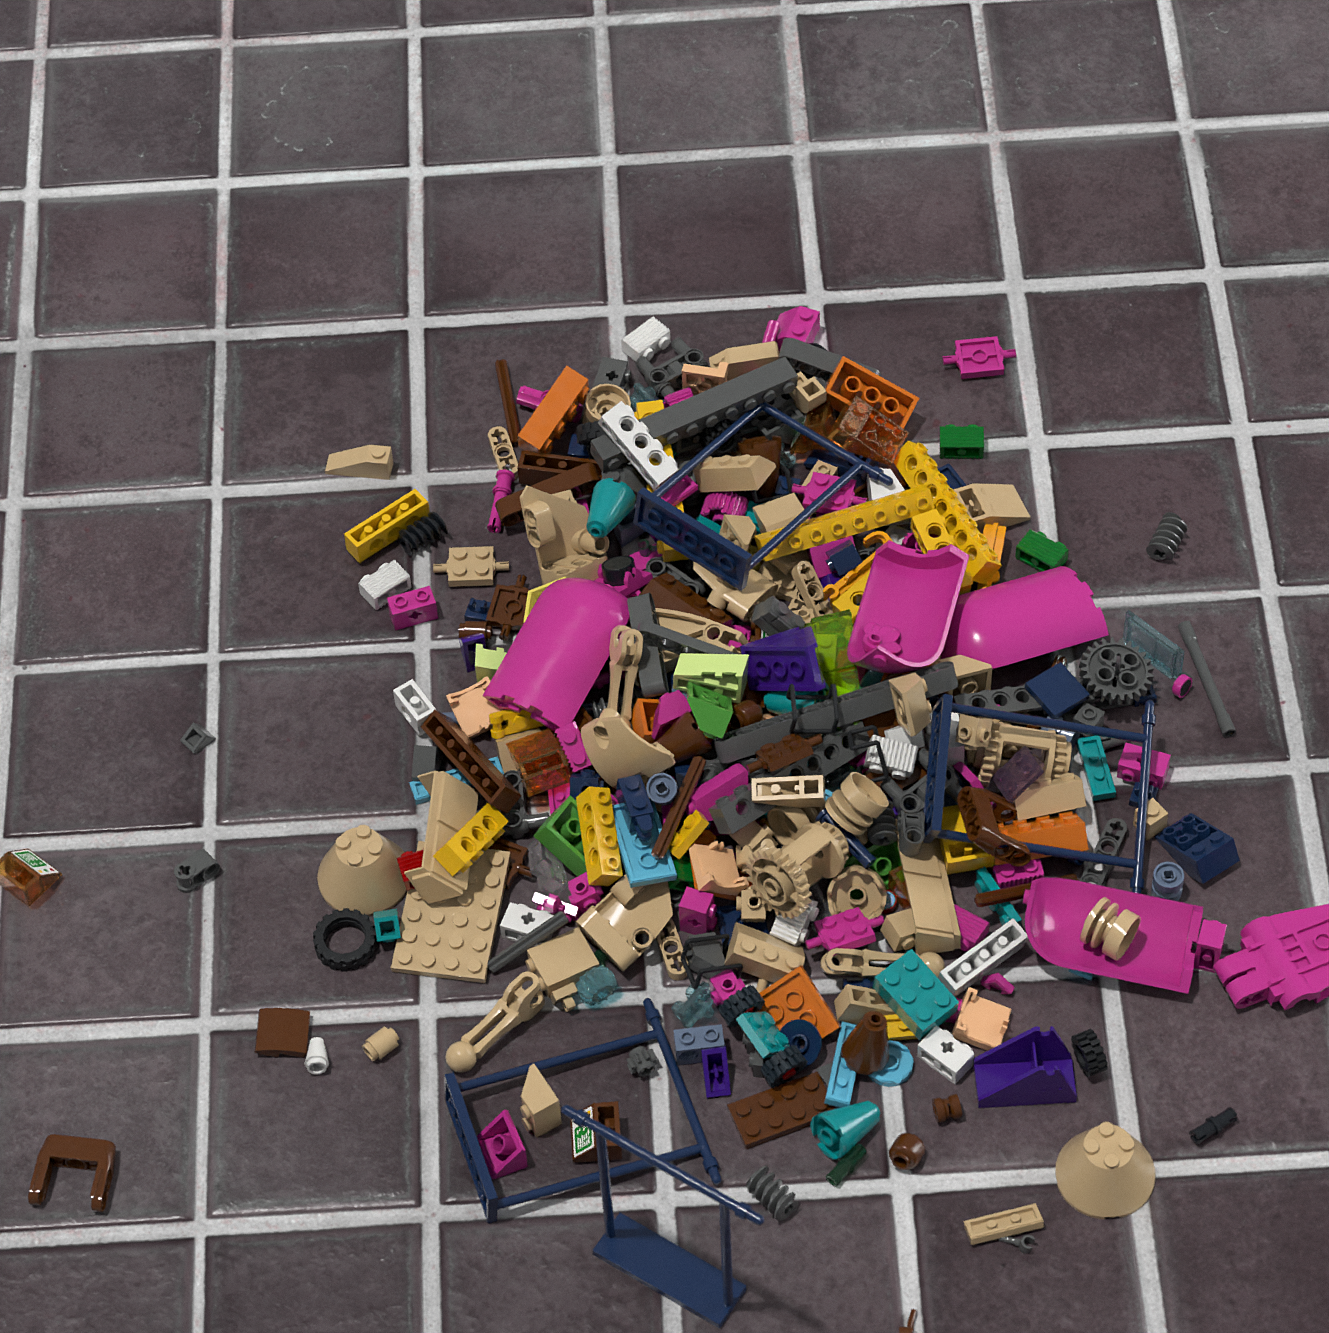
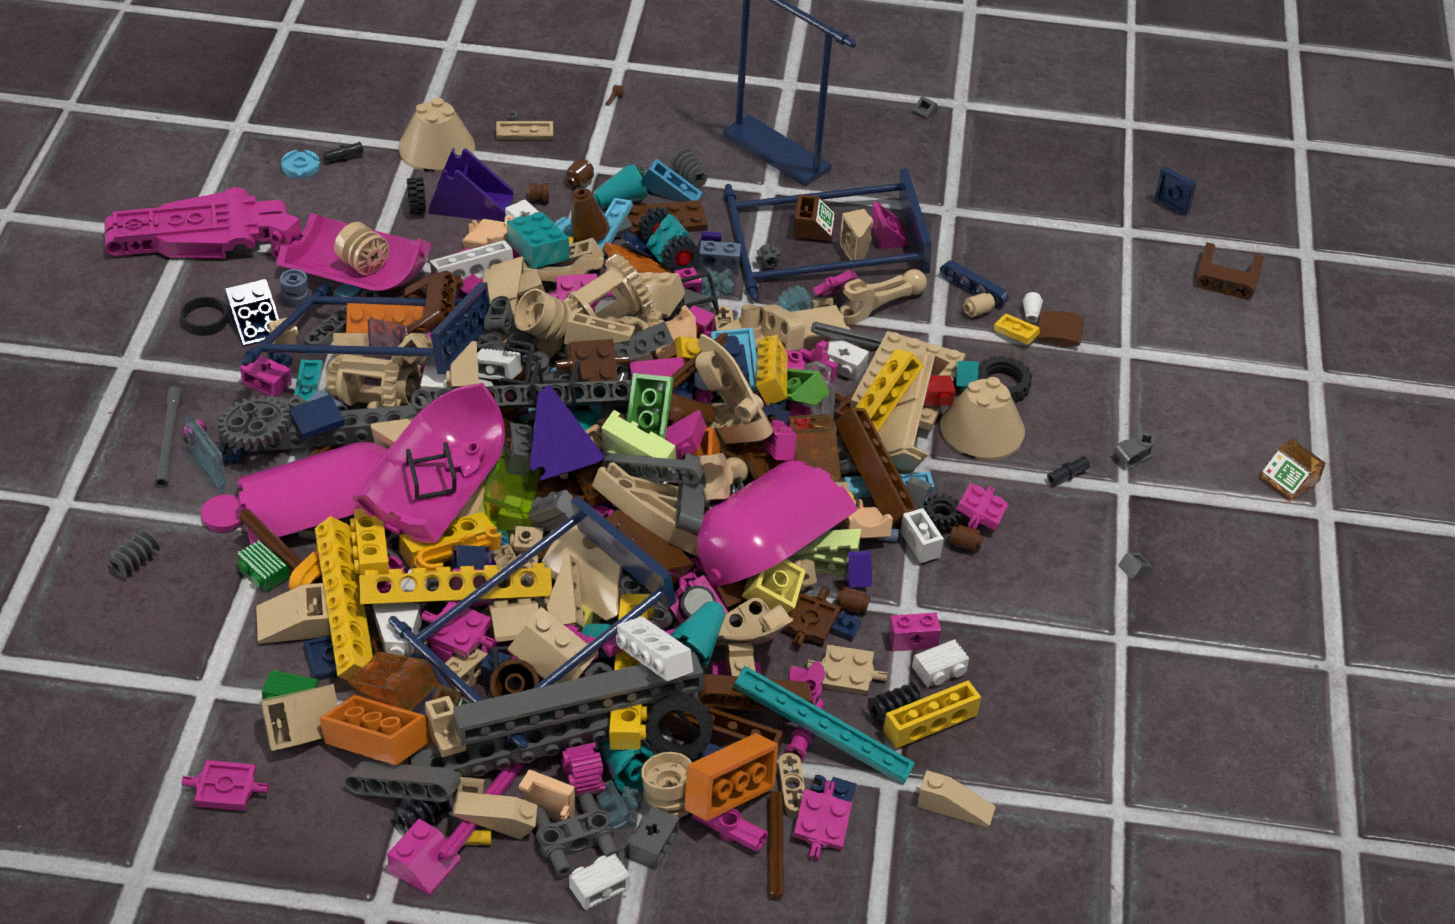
camera: 175 degrees left, 10 degrees down
(137, 1280) = (1175, 191): none -> dark blue tile
(268, 831) = (1068, 470): none -> black pin
(333, 1014) = (1016, 329): none -> yellow plate
(357, 758) = (982, 506): none -> dark pink plate
(371, 723) = (966, 538): none -> reddish brown brick
(389, 1077) = (954, 273): none -> dark blue beam
(397, 738) = (946, 506): none -> black tyre
(463, 457) = (843, 789): none -> dark blue plate
(472, 423) = (822, 820): none -> dark pink plate
(483, 482) = (823, 725): none -> teal tile
(508, 545) = (813, 676): none -> dark pink plate
(551, 1010) = (832, 284): none -> dark pink plate
(792, 1157) = (668, 184): none -> dark azure slope
(834, 668) = (518, 449): none -> dark grey brick
(912, 578) = (446, 453): none -> black piece
(941, 406) = (296, 716): none -> tan slope
(1040, 560) = (271, 540): none -> reddish brown axle
(1113, 604) = (222, 513): none -> dark pink tile
(1259, 818) = (209, 329): none -> black tyre
(1259, 1100) = (300, 164): none -> medium azure tile

